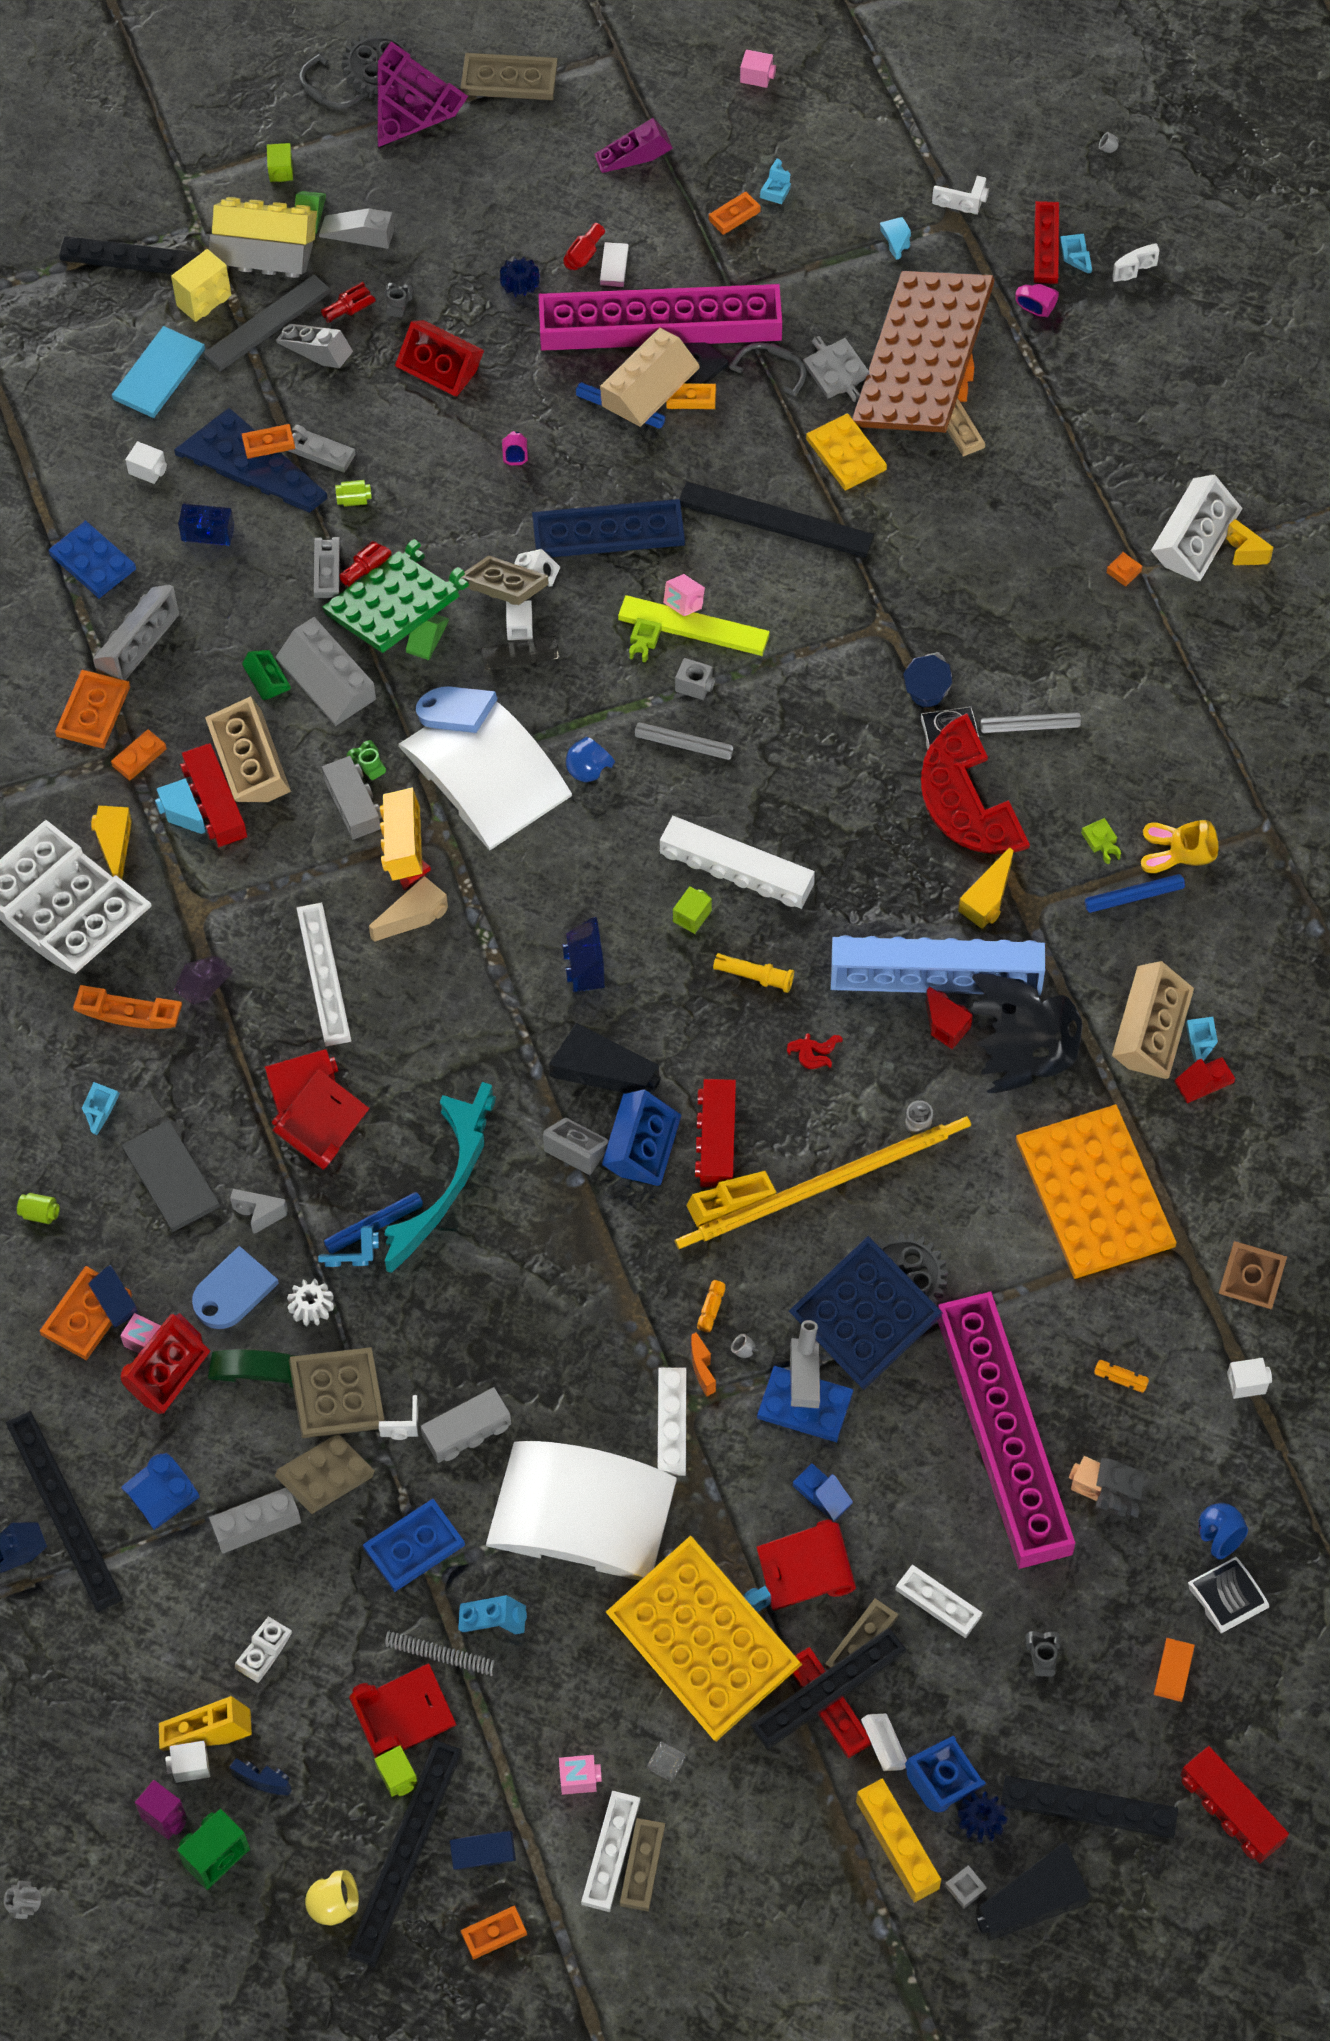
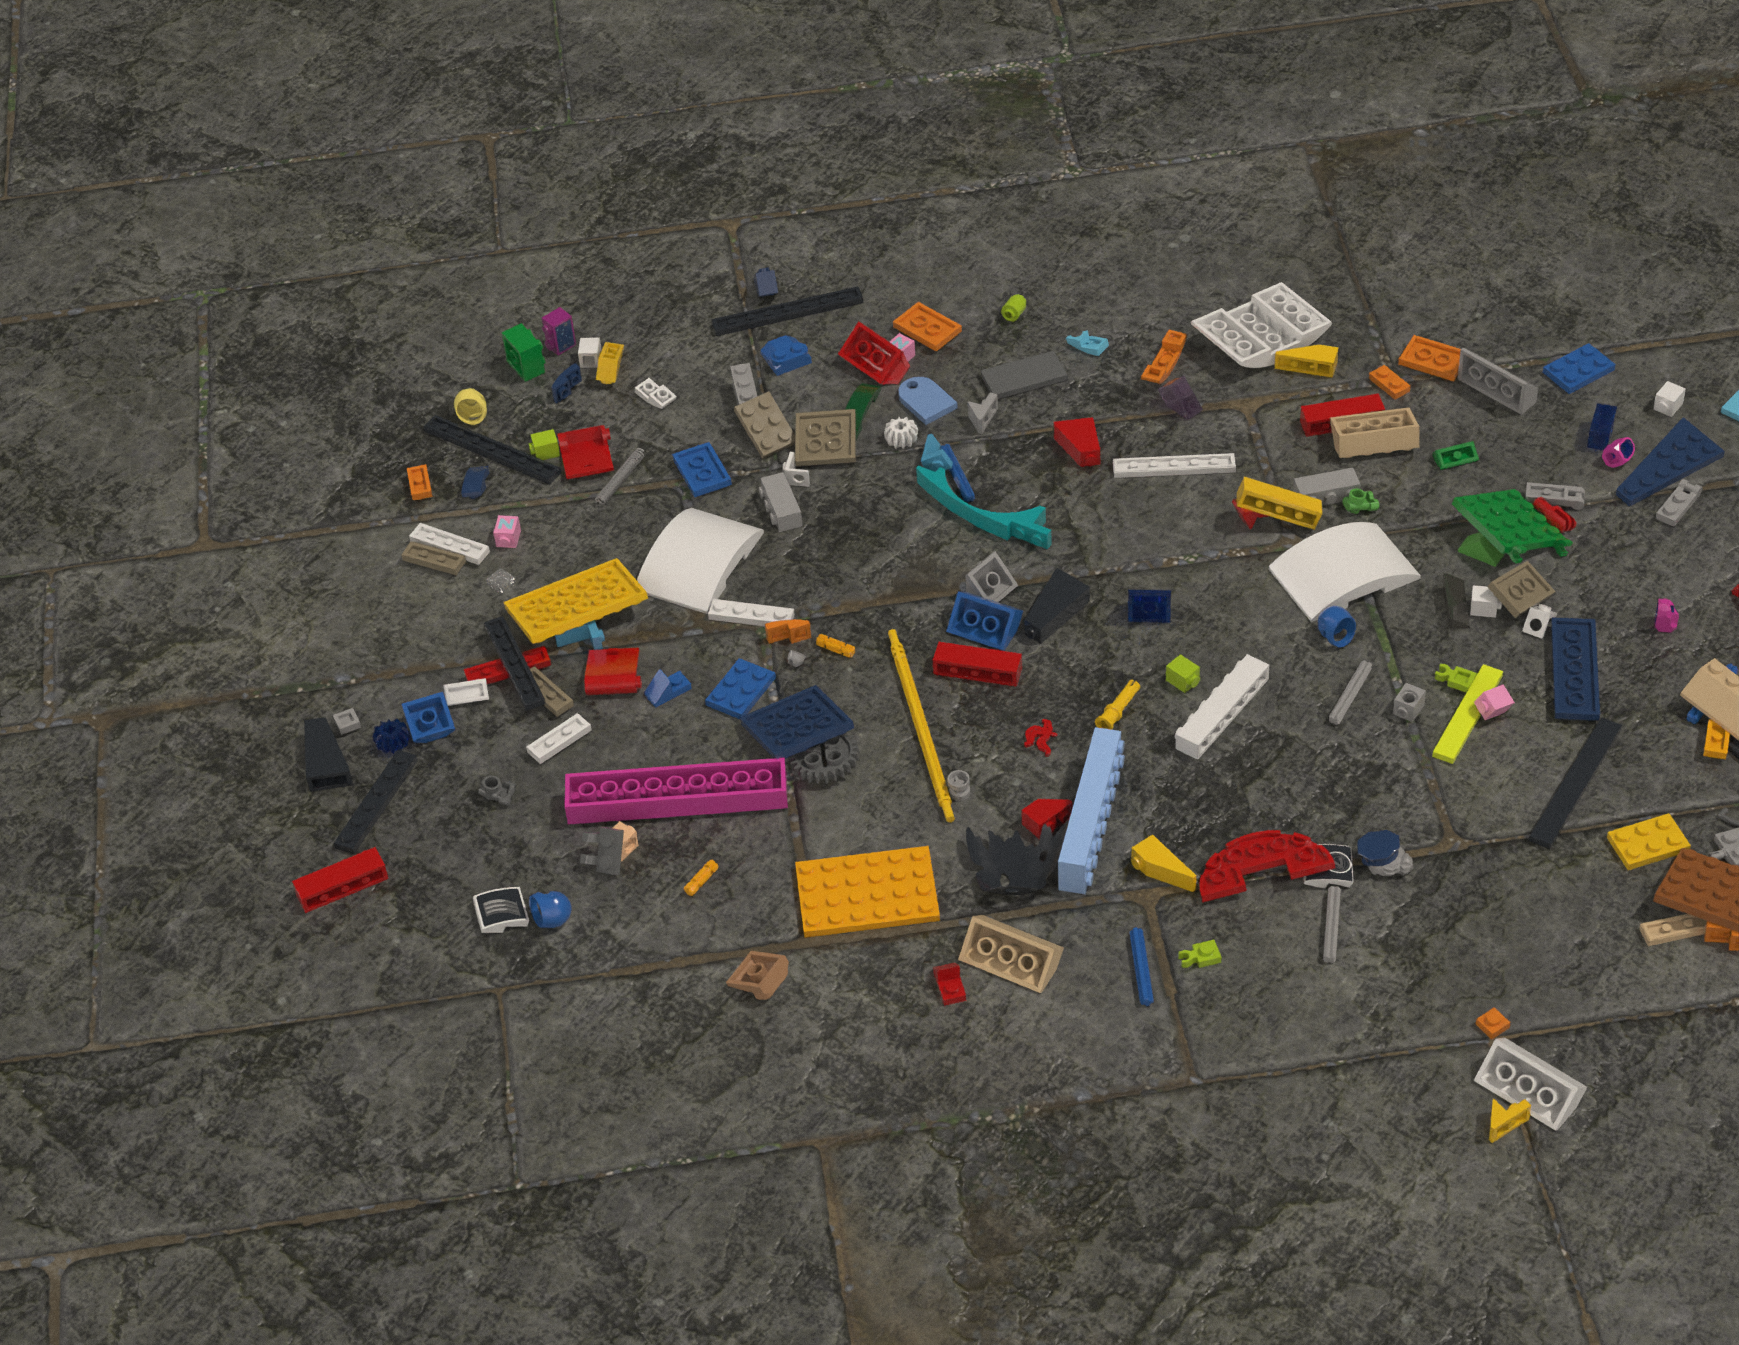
camera: 105 degrees right, 15 degrees down
(22, 1899) = (529, 274): light grey gear -> none
(113, 1296) = (931, 334): dark blue slope -> none
(180, 806) = (1335, 391): medium azure slope -> none
(247, 507) = (1618, 452): none -> dark pink rock
(268, 441) = (1679, 462): orange plate -> none
(320, 1119) = (1042, 444): red door -> none
(326, 672) = (1439, 491): light grey slope -> none
(353, 493) = (1627, 514): lime brick -> none
(413, 910) = (1219, 516): tan slope -> none
(455, 708) = (1398, 550): tile -> none
(493, 1612) = (633, 504): dark azure bracket -> none
(729, 1197) = (920, 664): yellow slope -> none
(805, 1367) = (760, 682): light grey piece -> none
(898, 1840) = (392, 687): yellow brick -> none
(1174, 1669) = (455, 864): orange slope -> none
(1190, 845) = (1178, 1005): yellow piece -> none
(1201, 1036) = (988, 989): medium azure slope -> none
(1249, 1378) = (671, 954): white brick -> none

